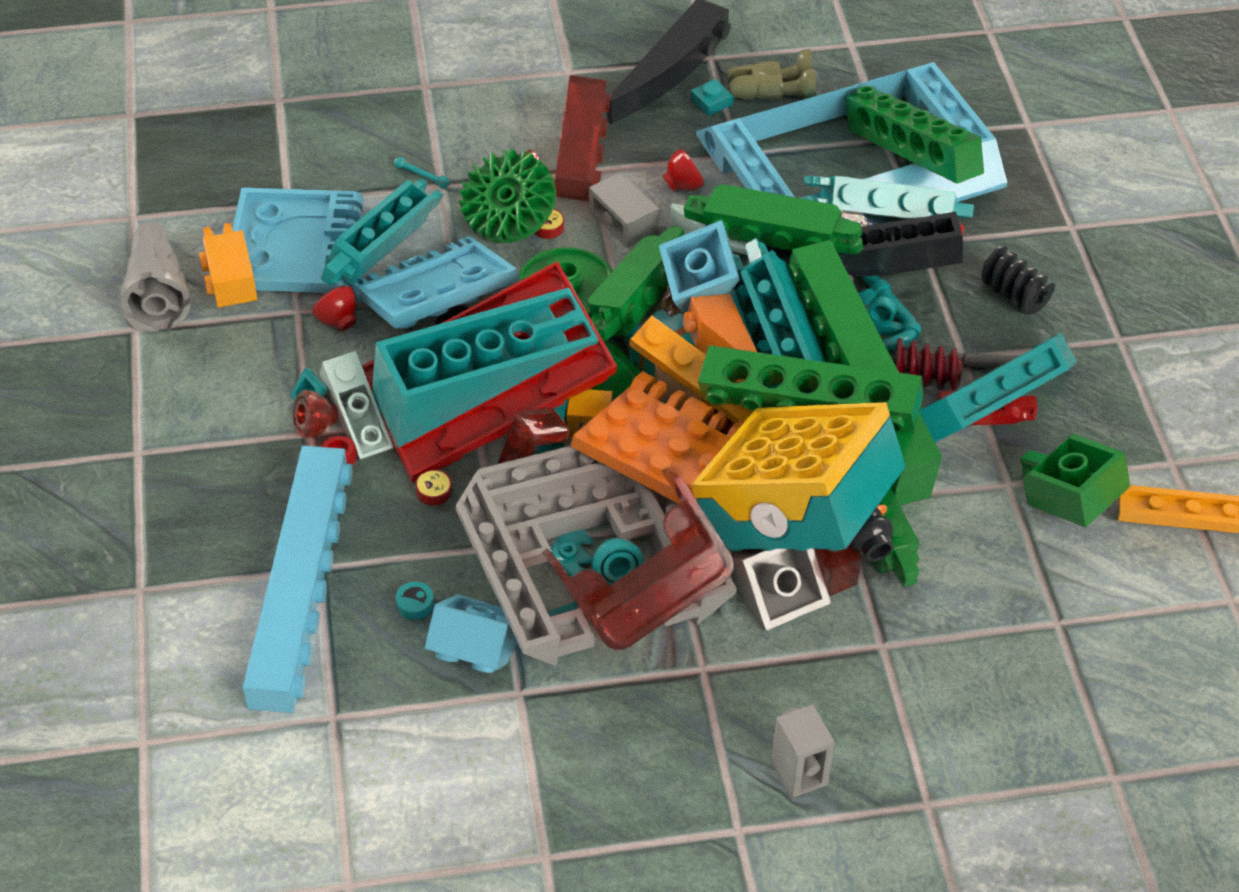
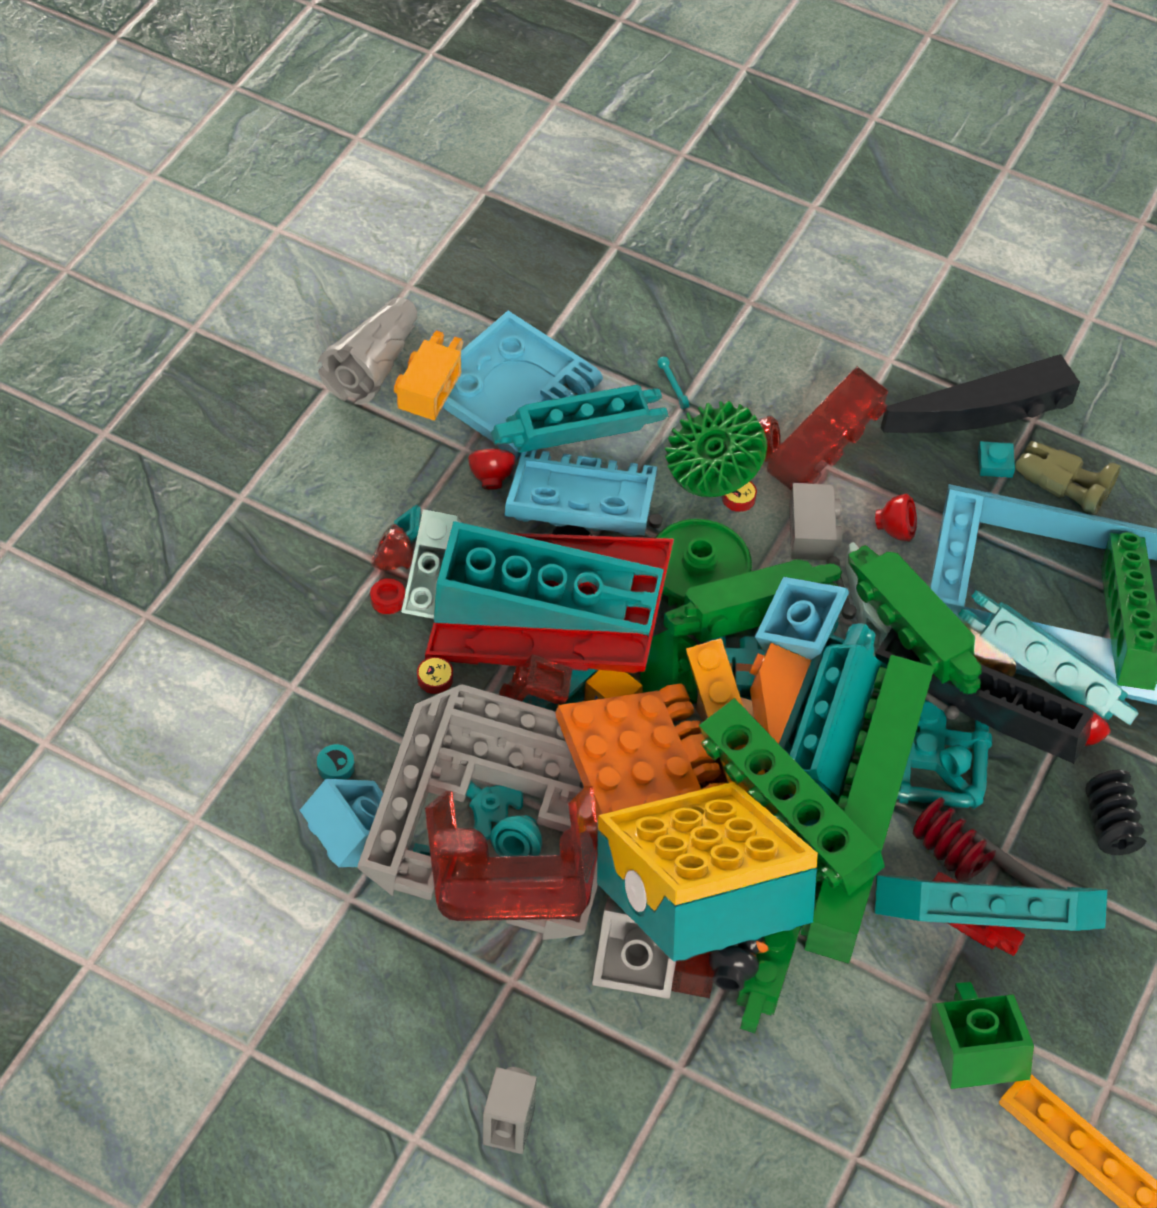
camera: 35 degrees right, 5 degrees up
(297, 581) = (260, 684): medium azure brick -> none

